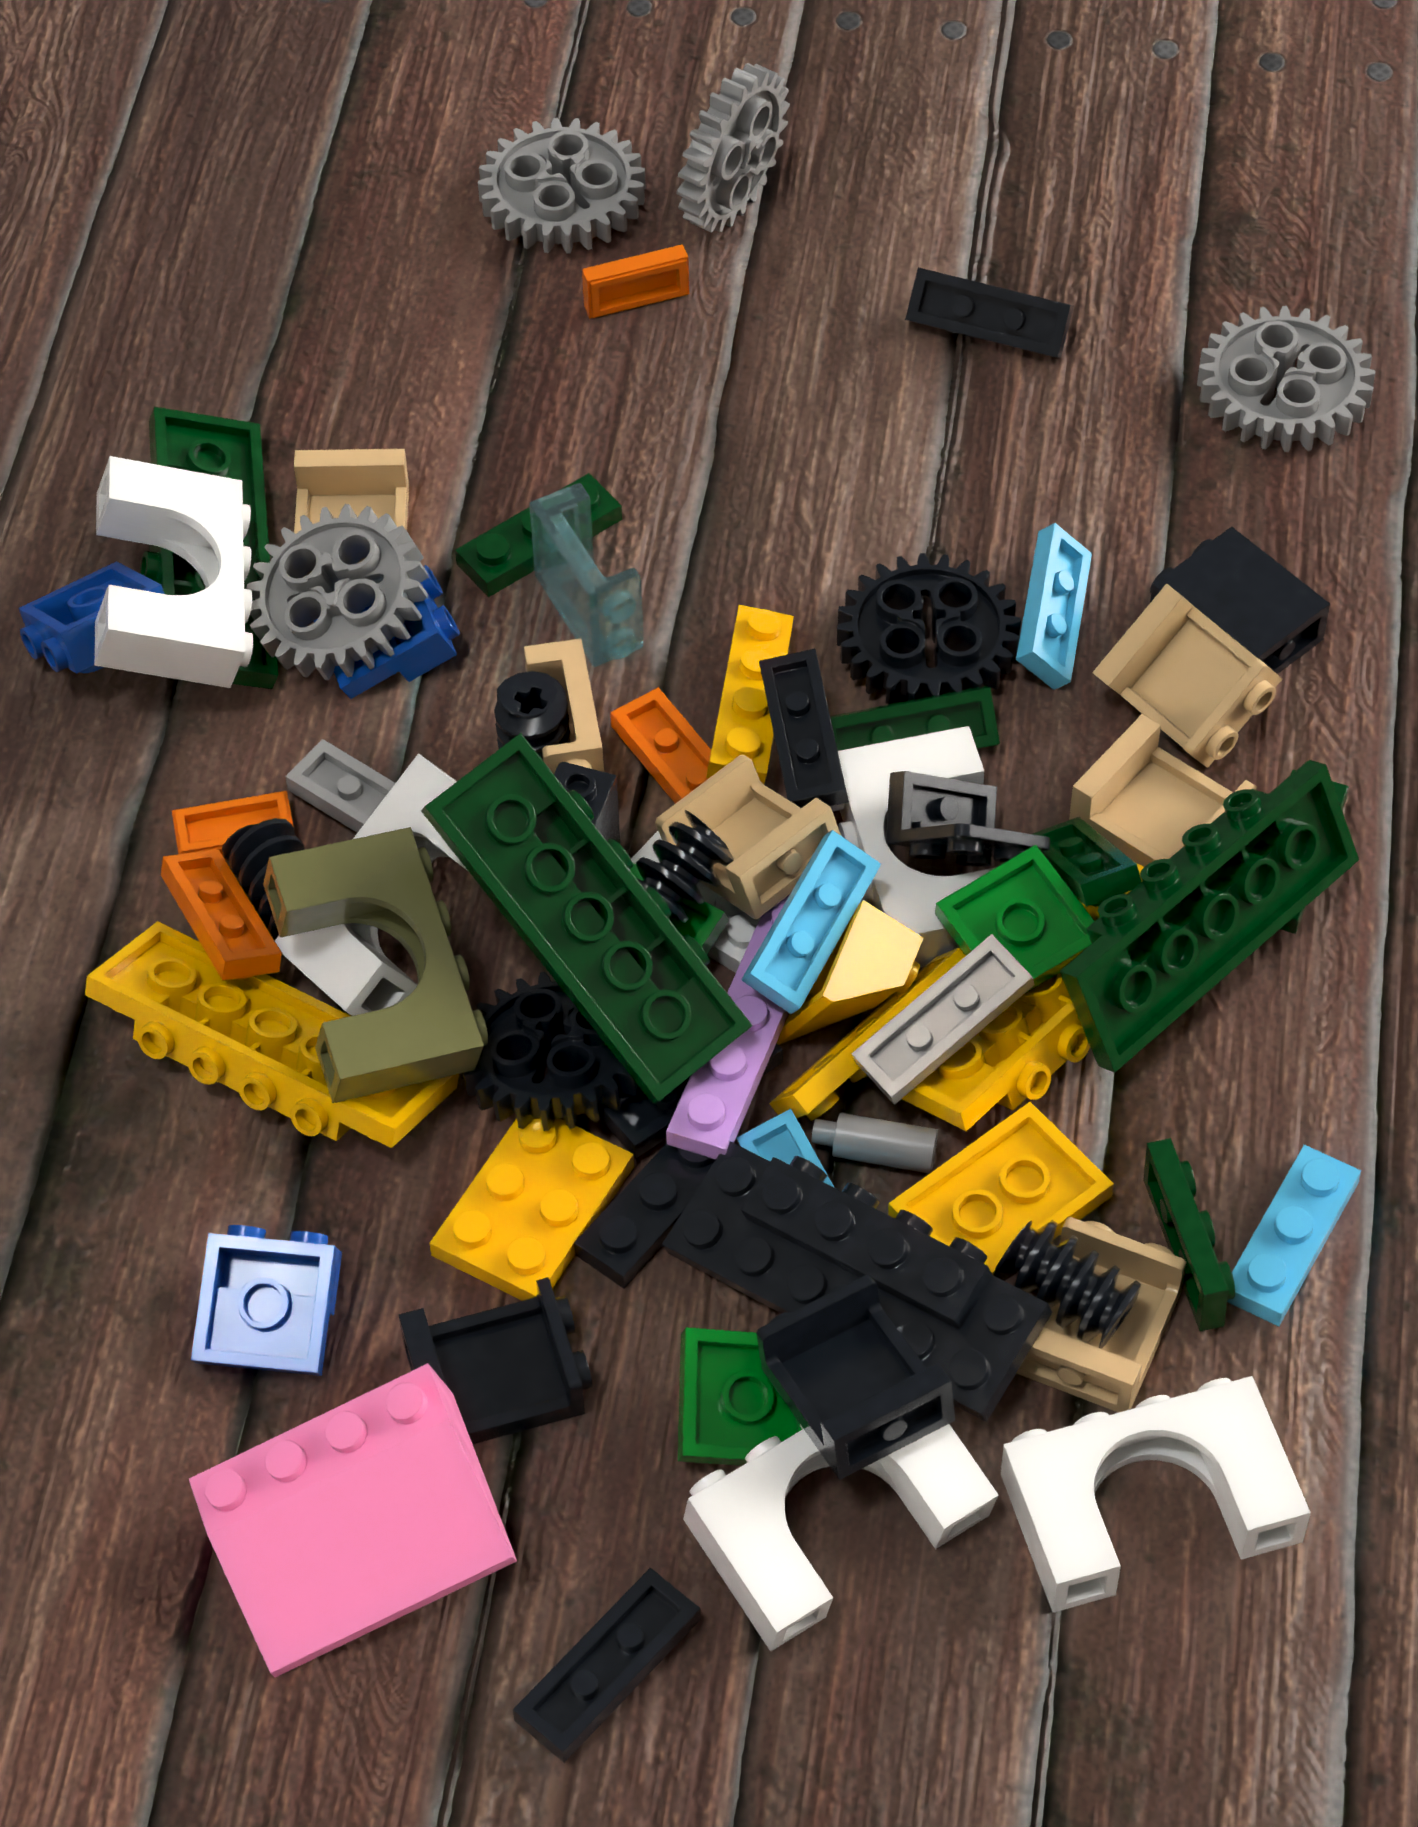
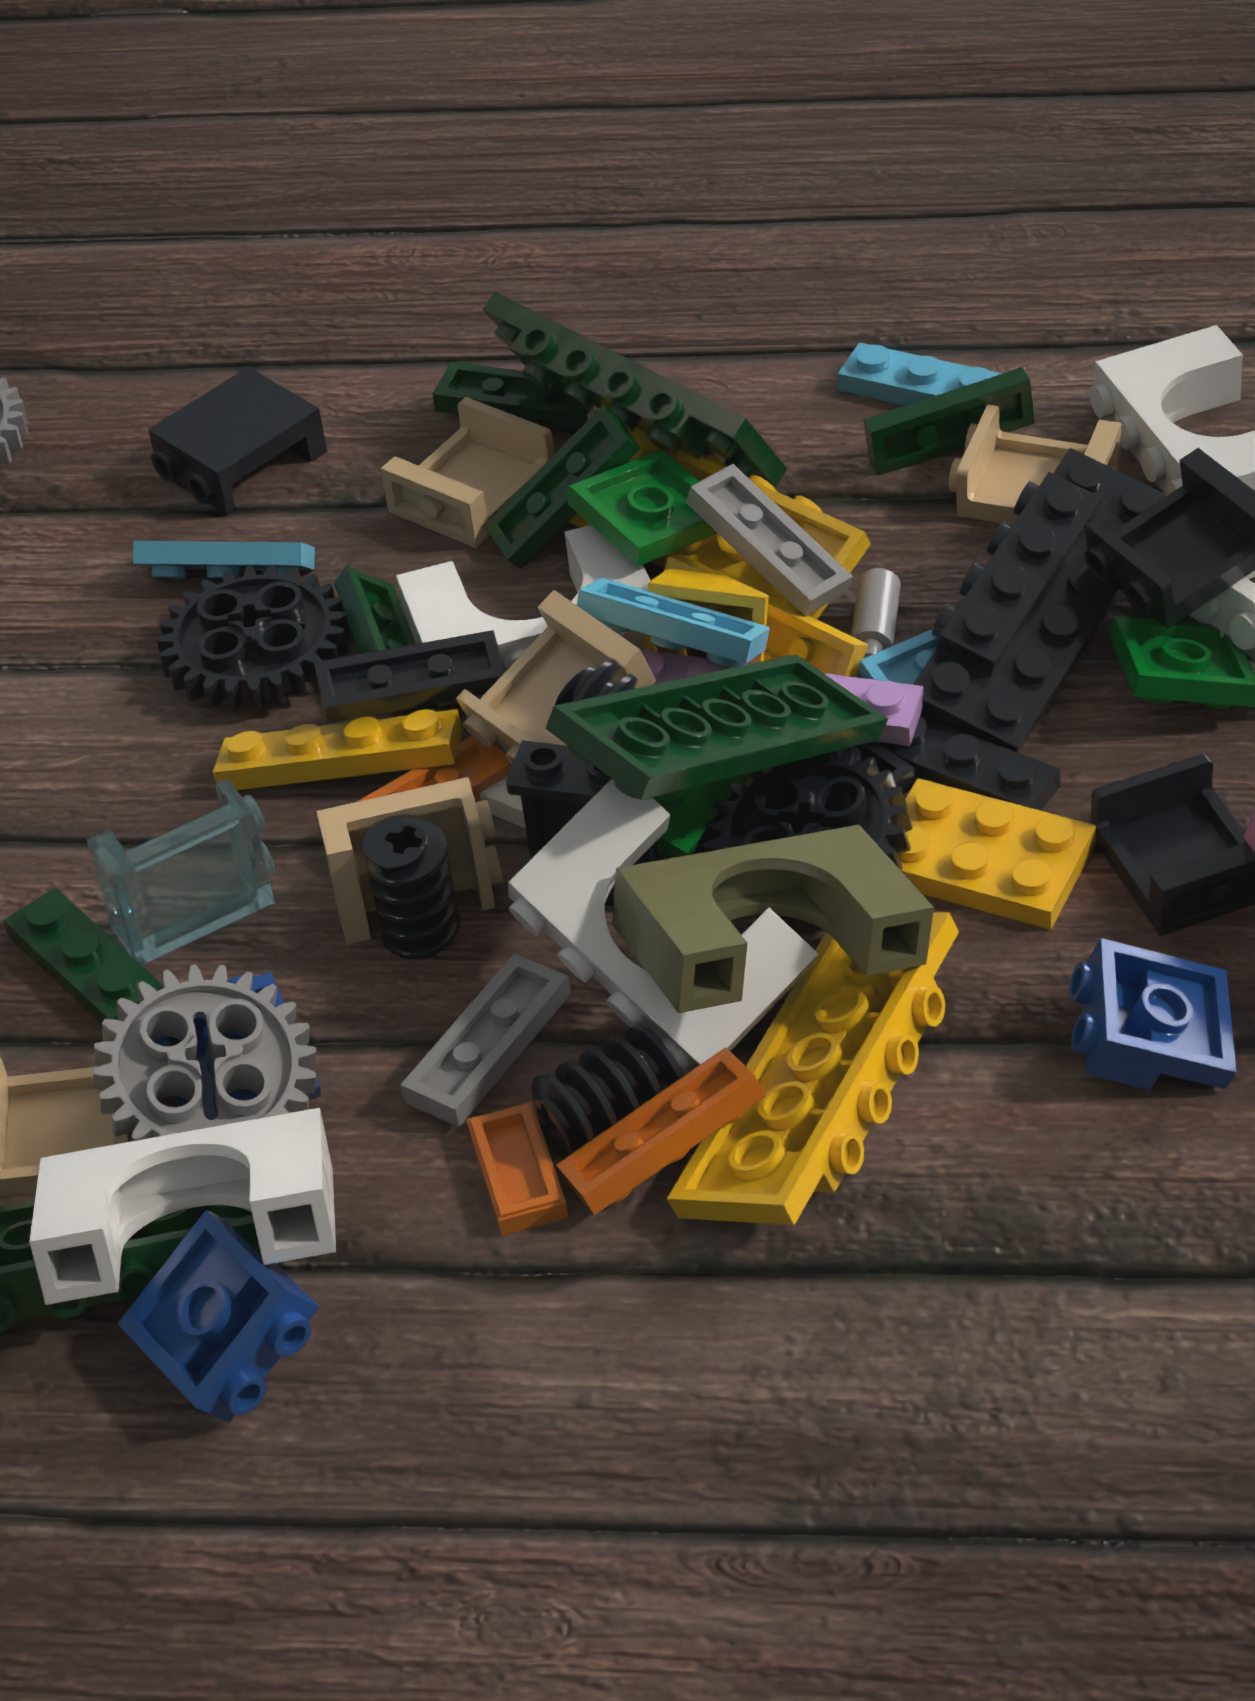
camera: 90 degrees left, 10 degrees down
(953, 818) = (558, 528): black bracket -> none
(1003, 1182) = (921, 534): yellow plate -> none
(1068, 1282) = (1023, 456): black piece -> none
(1188, 676) = (332, 447): tan panel -> none

